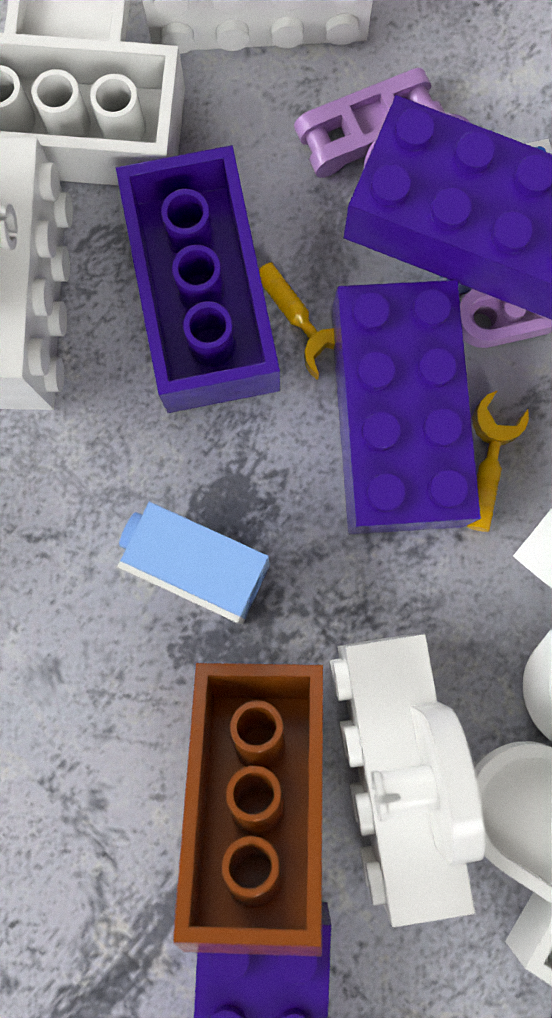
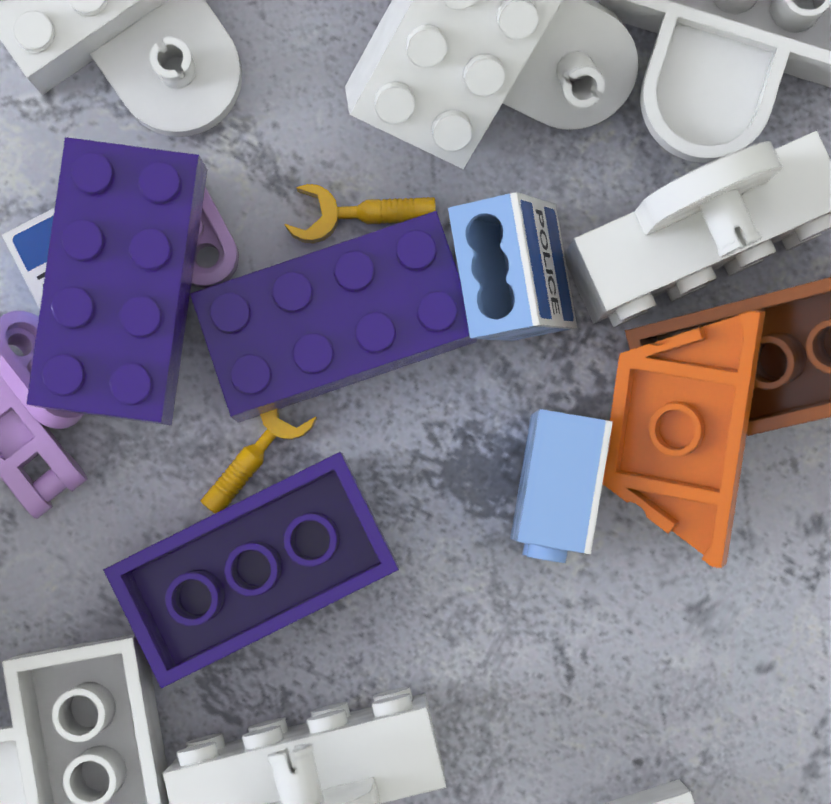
camera: 110 degrees left, 5 degrees up
(213, 694) = (684, 429): none -> orange wing
(411, 574) = (512, 267): none -> light blue piece

